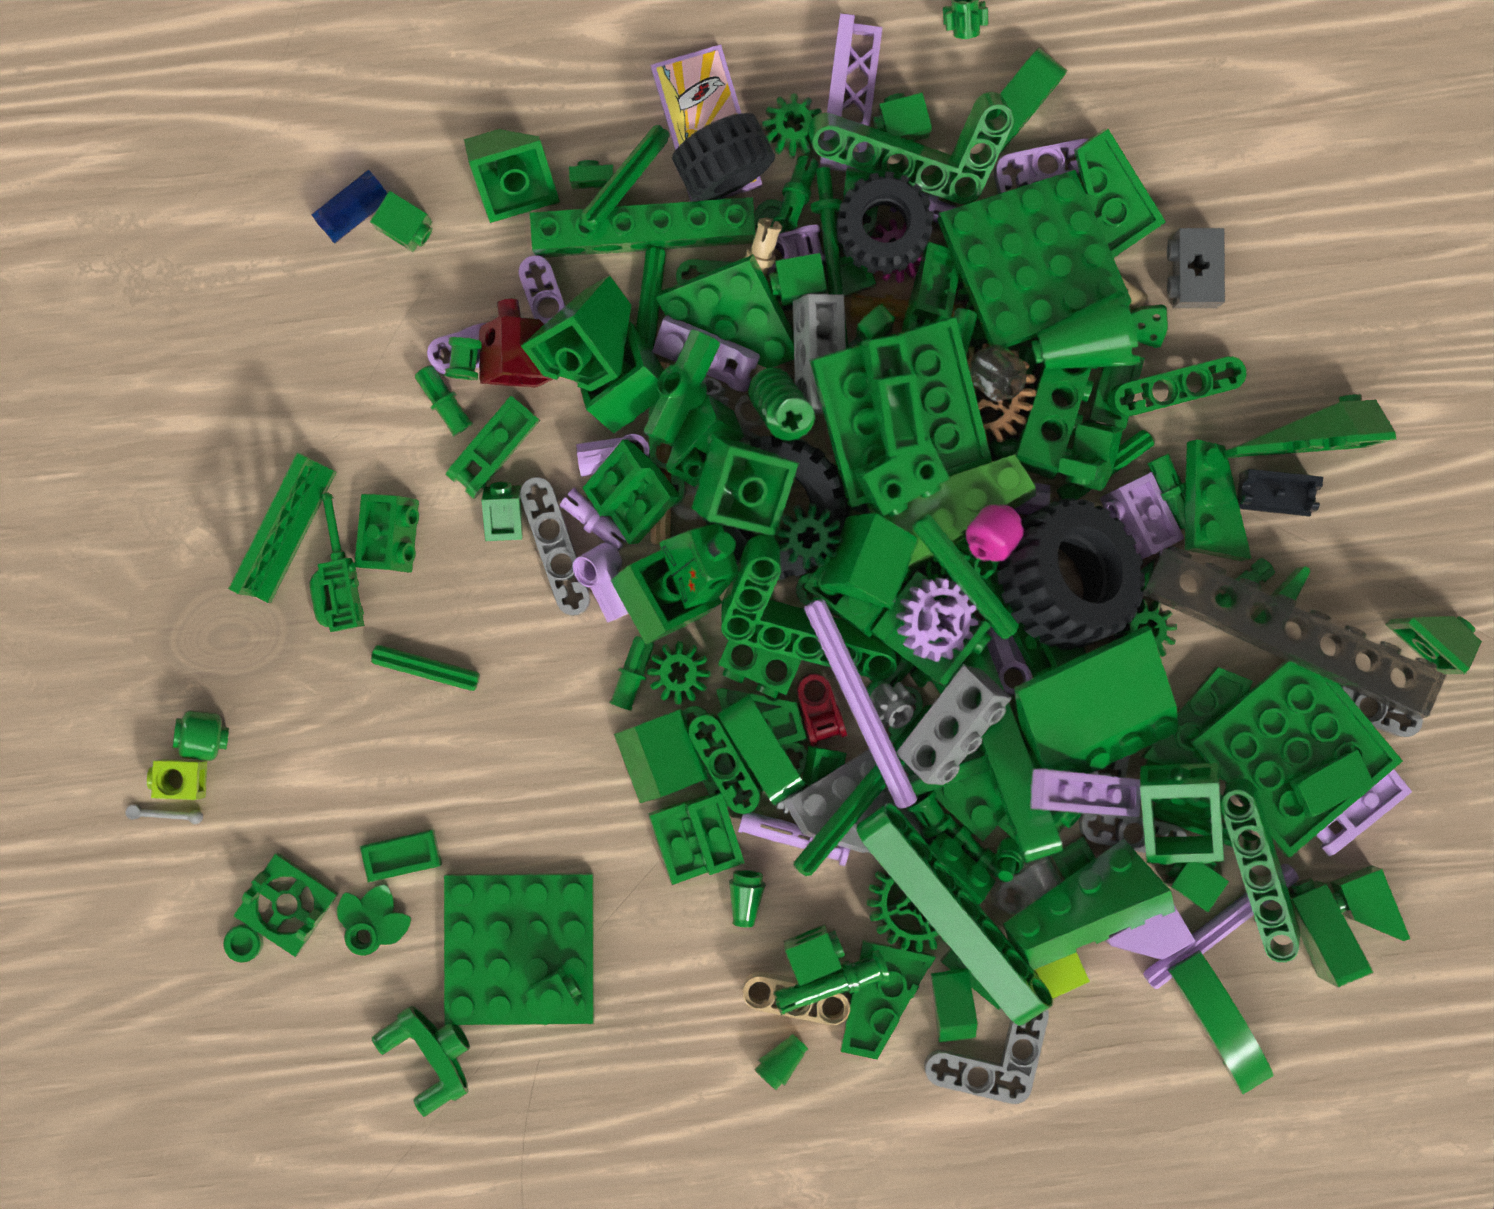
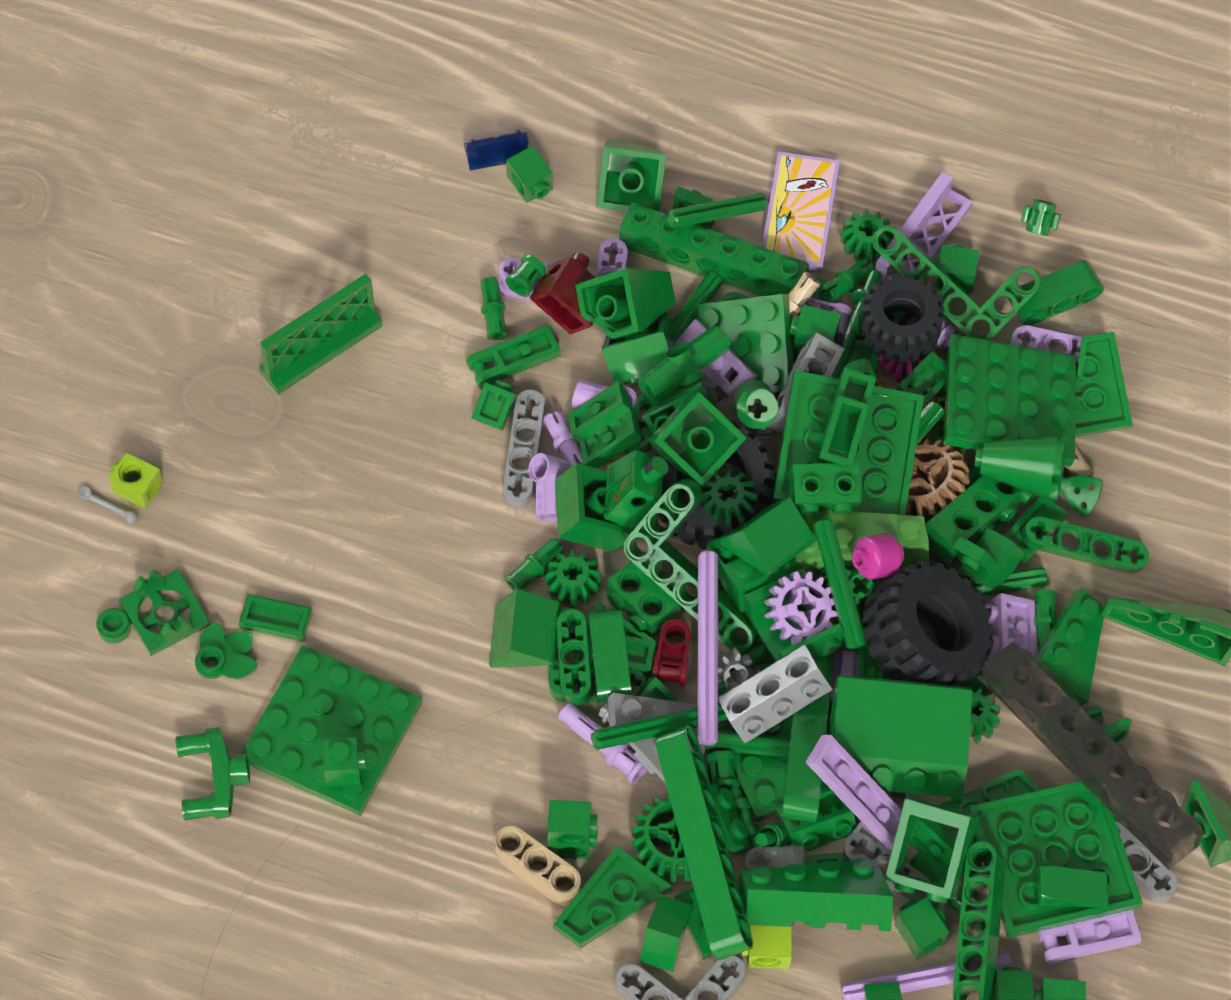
camera: 25 degrees right, 25 degrees down
(200, 735) = (171, 456): green head -> none
(342, 582) = (342, 396): green piece -> none
(386, 532) = (398, 380): green bracket -> none
(425, 667) = (373, 489): green axle -> none
(696, 838) = (520, 707): green slope -> none
(723, 157) = (800, 222): black tyre -> none
(746, 895) = (538, 769): green cone -> none
(780, 1062) = (498, 912): green cone -> none
(849, 978) = (590, 858): green pin -> none
(998, 372) = (939, 453): clear smoke head -> none
(1156, 938) = (862, 952): lavender slope -> none
(1207, 251) = (1136, 484): dark grey brick -> none
(1278, 492) = (1134, 660): black hinge -> none

